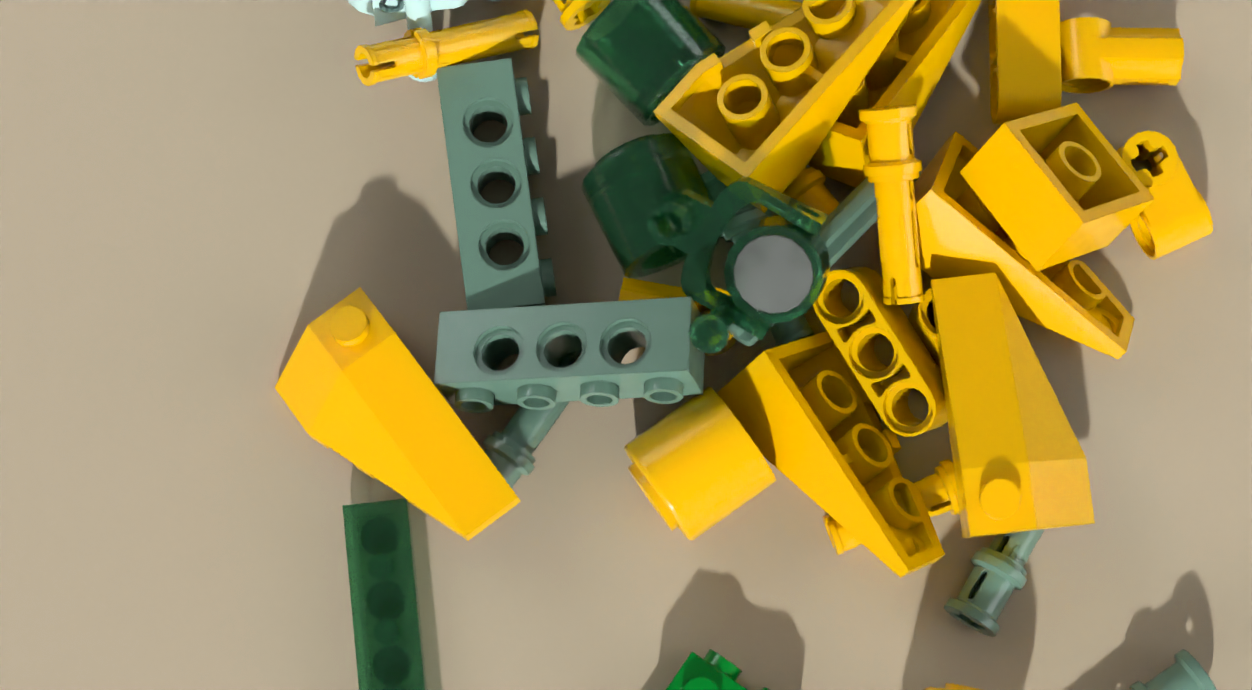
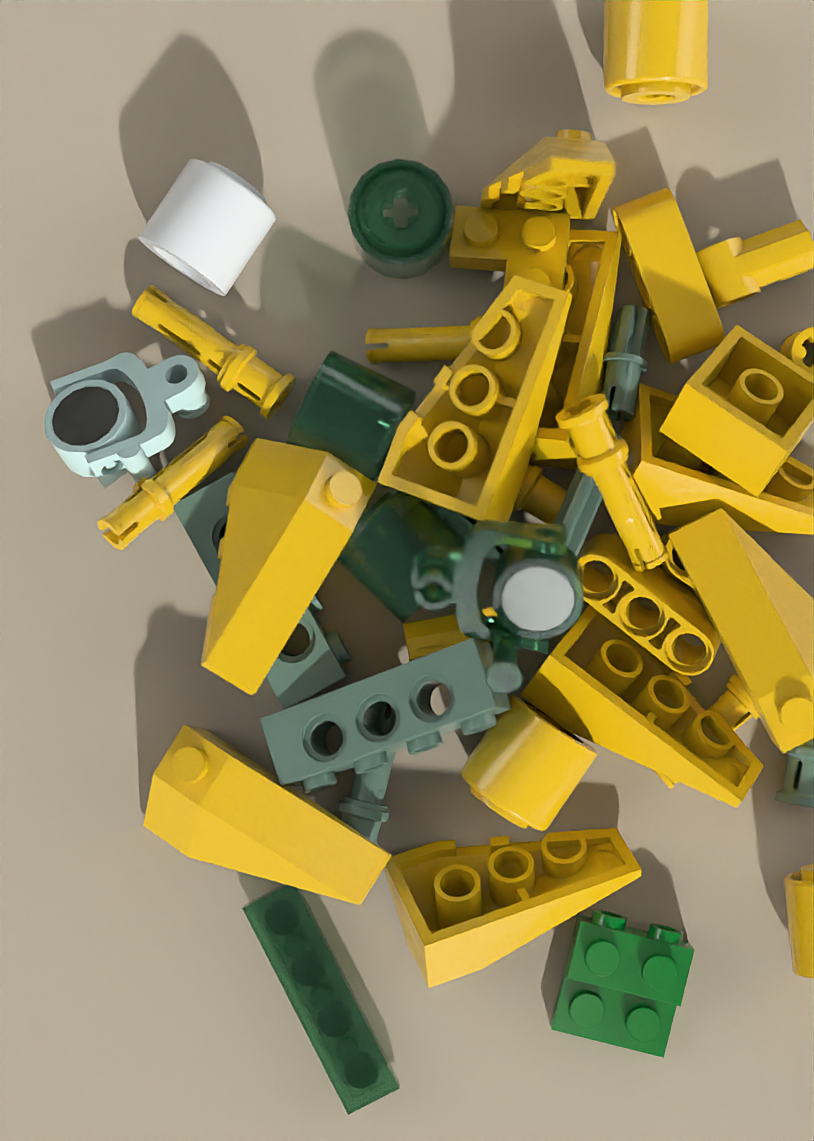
camera: 25 degrees left, 10 degrees up
(529, 137) = (281, 538): none -> yellow wedge
(596, 599) = (487, 900): none -> yellow wedge
(950, 104) = (626, 361): none -> sand green axle

